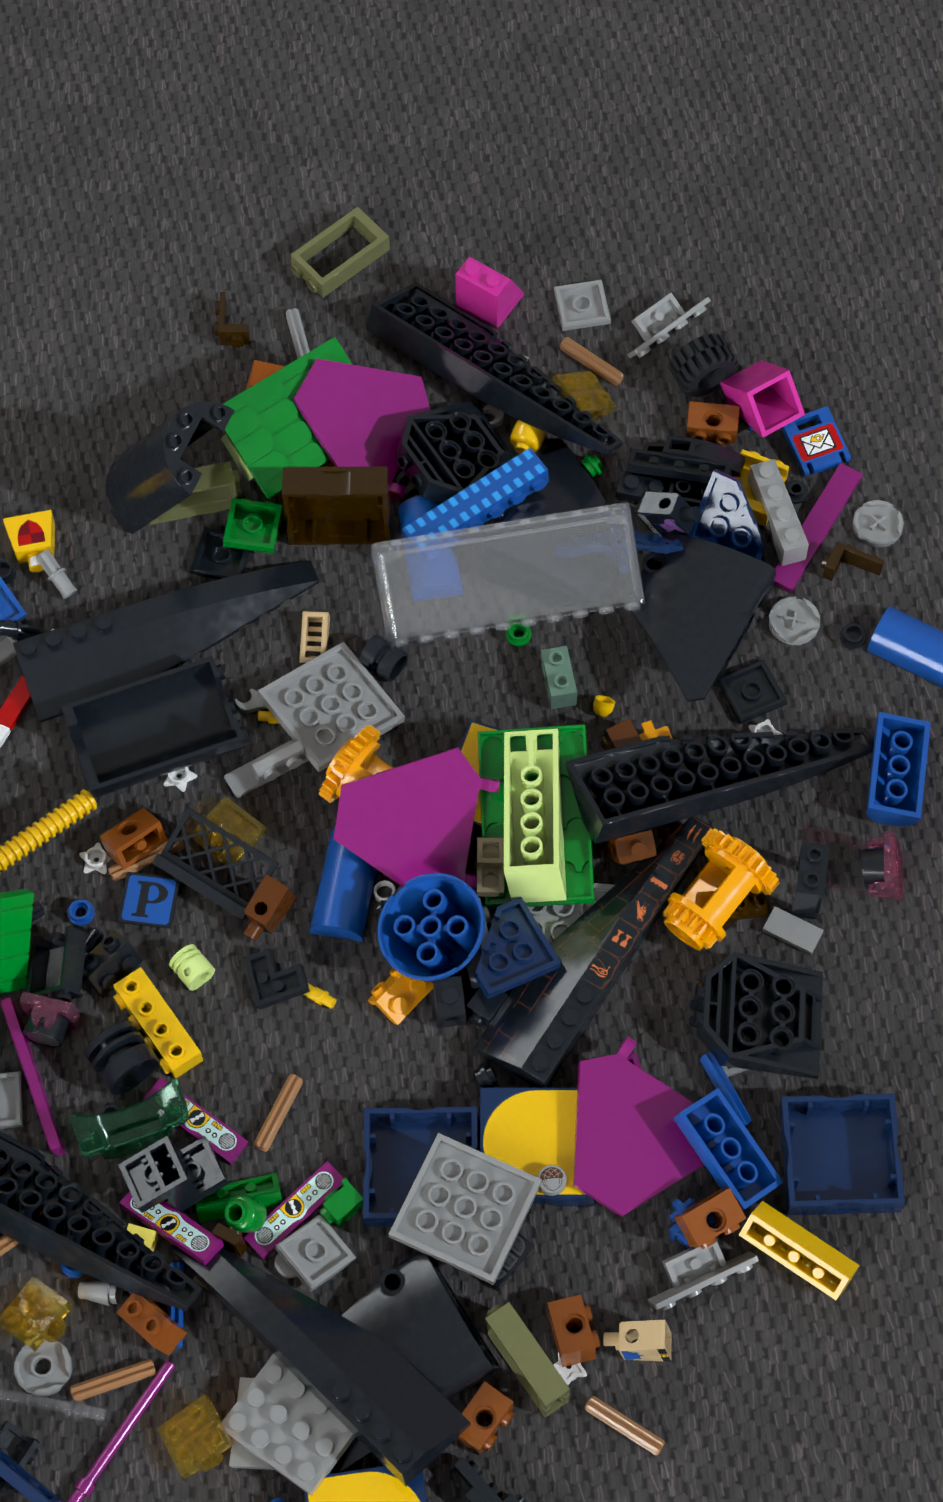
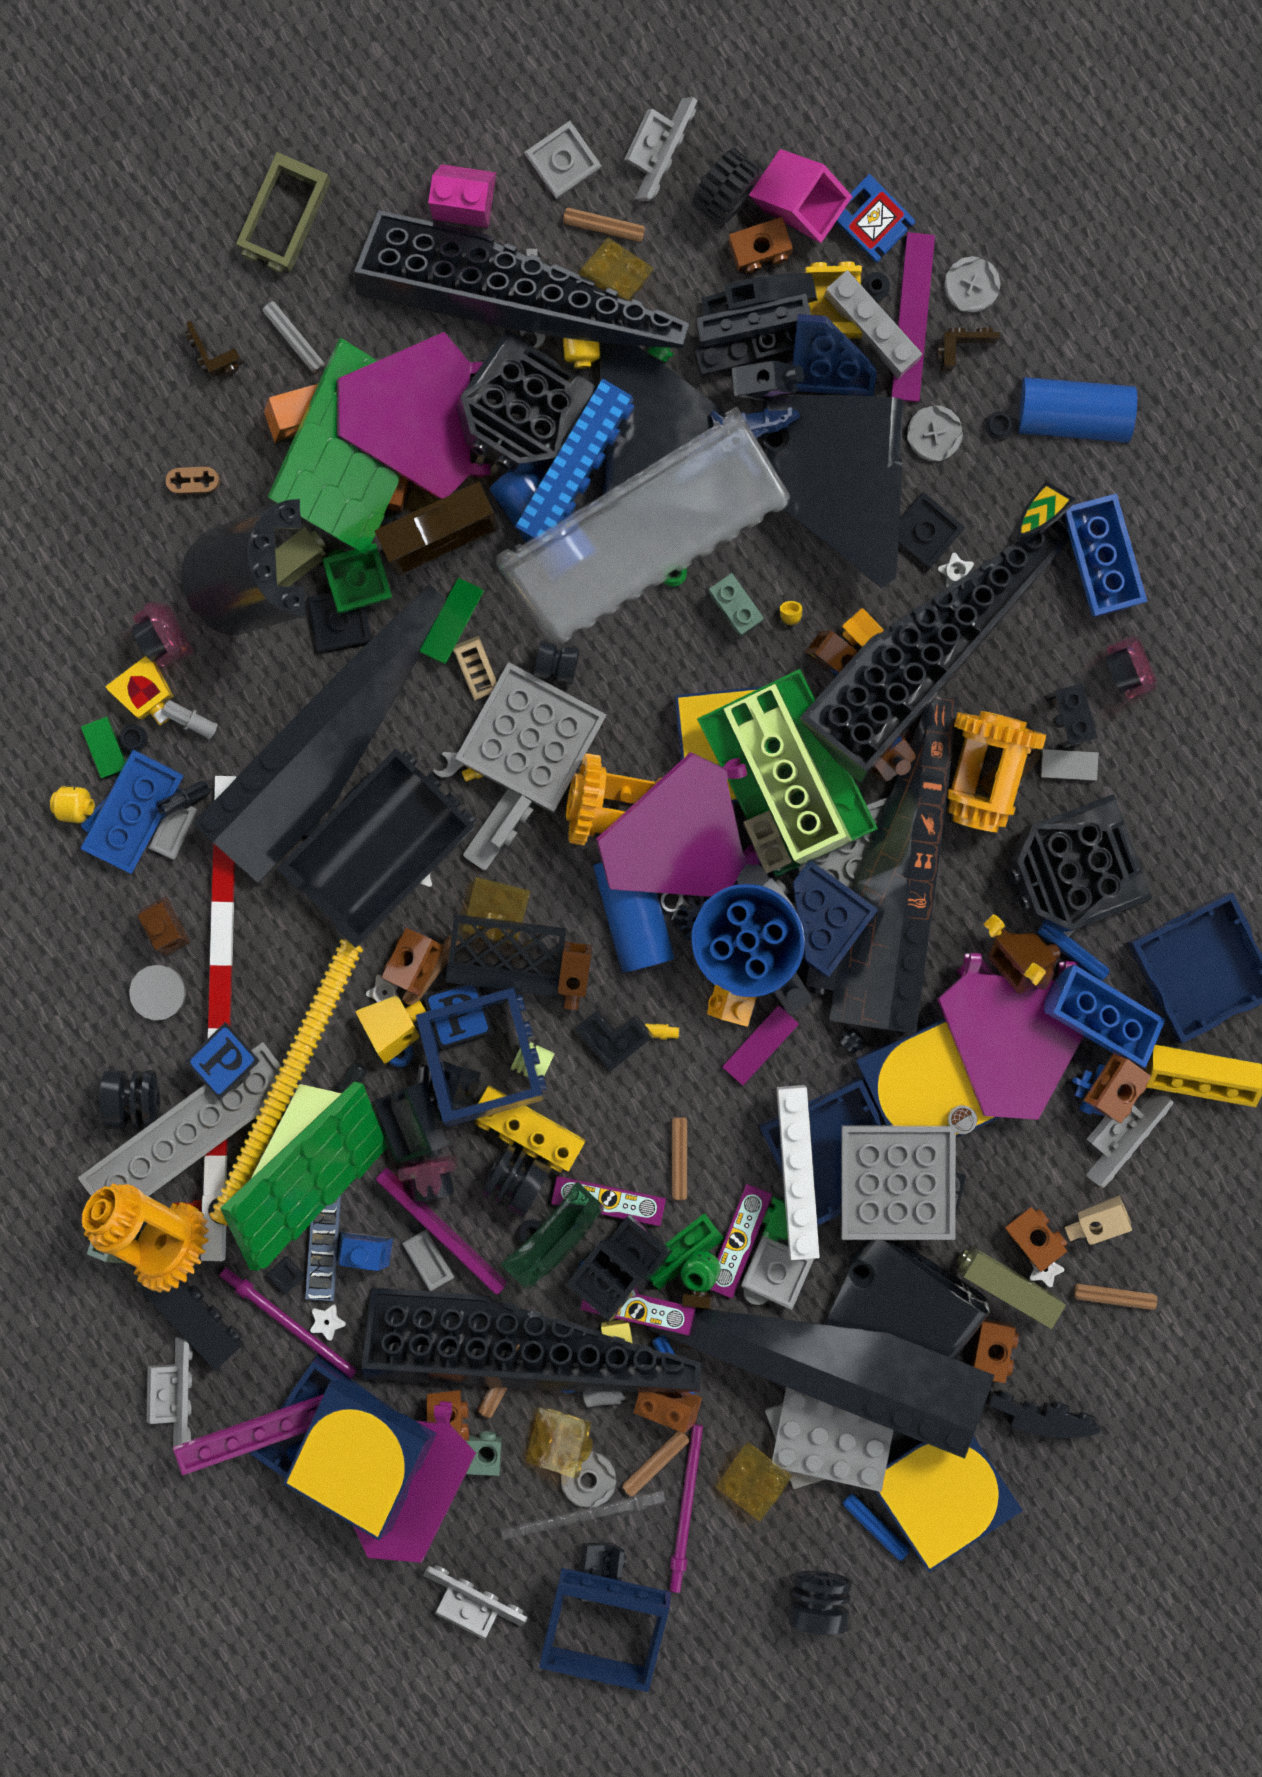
camera: 25 degrees left, 25 degrees up
(70, 500) = (160, 634): none -> clear pink piece
(86, 881) = (390, 1025): none -> yellow torso
(138, 973) = (439, 1080): none -> dark blue window
(161, 407) = (193, 487): none -> medium nougat beam
(313, 593) = (451, 620): none -> green slope
(377, 1155) = (798, 1172): none -> white brick
(401, 1047) = (760, 1045): none -> magenta tile
(672, 1067) = (1021, 957): none -> reddish brown torso
(861, 716) = (1043, 510): none -> shield

